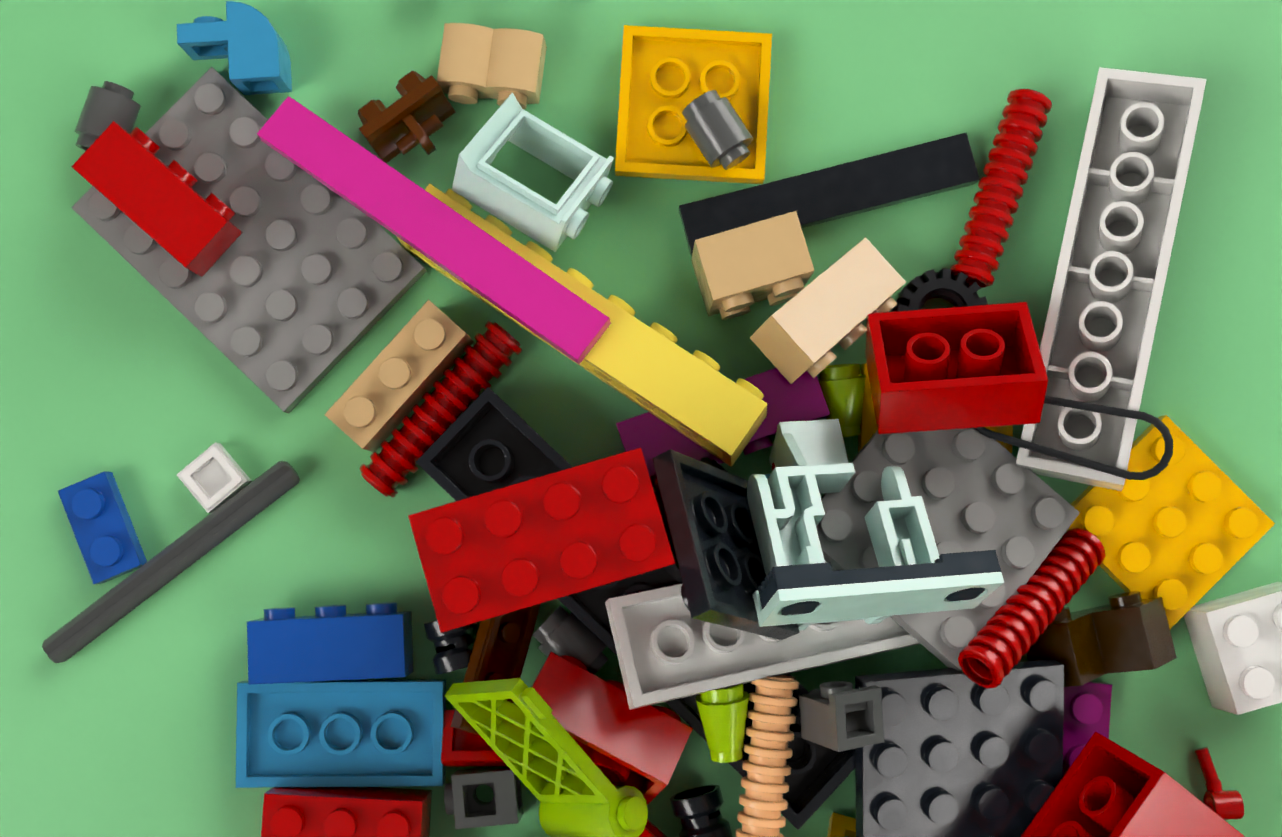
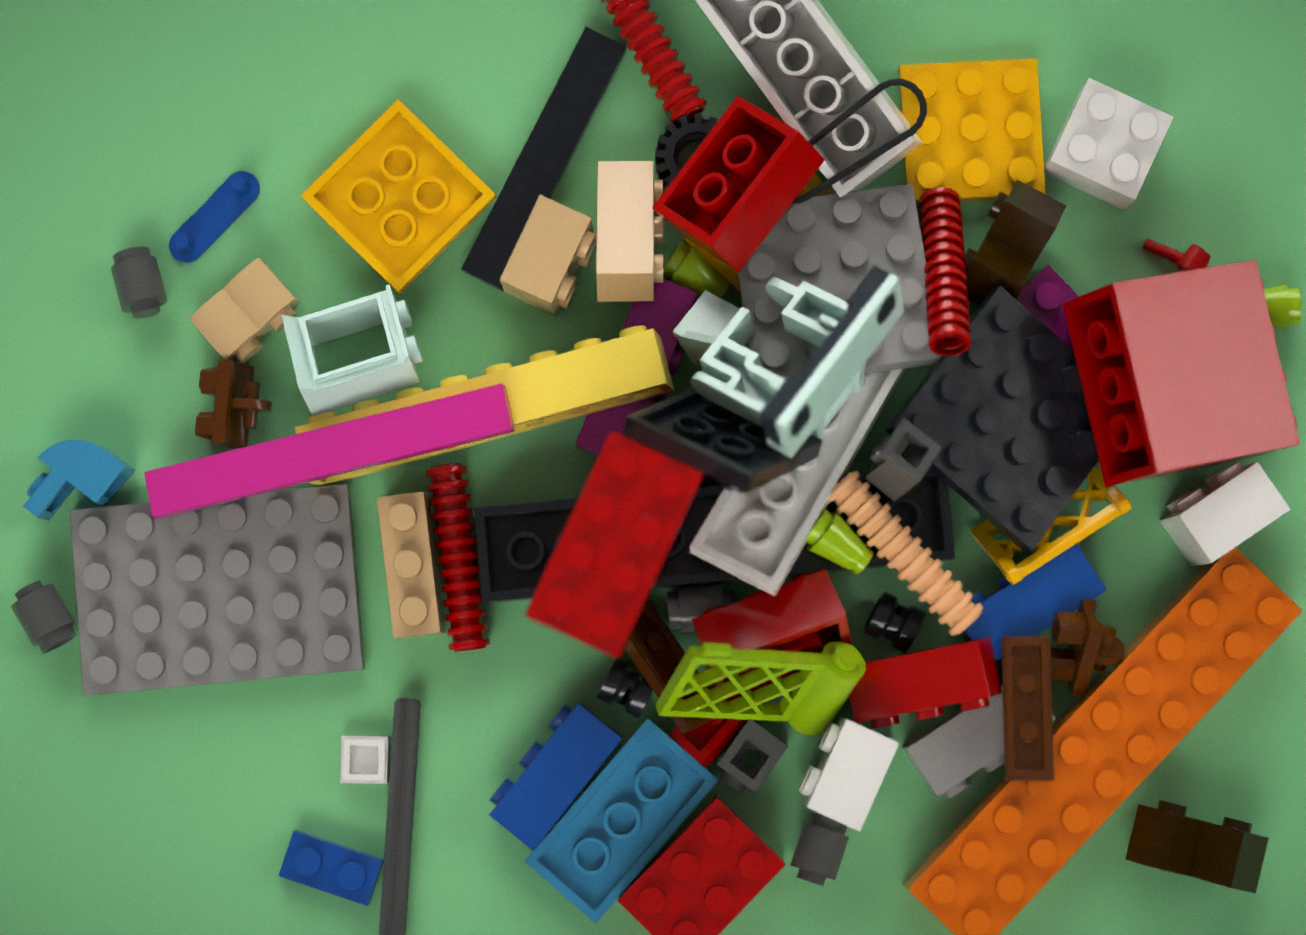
camera: 45 degrees left, 0 degrees up
(159, 197) = (138, 622): red brick -> none
(717, 130) = (434, 197): dark grey brick -> none

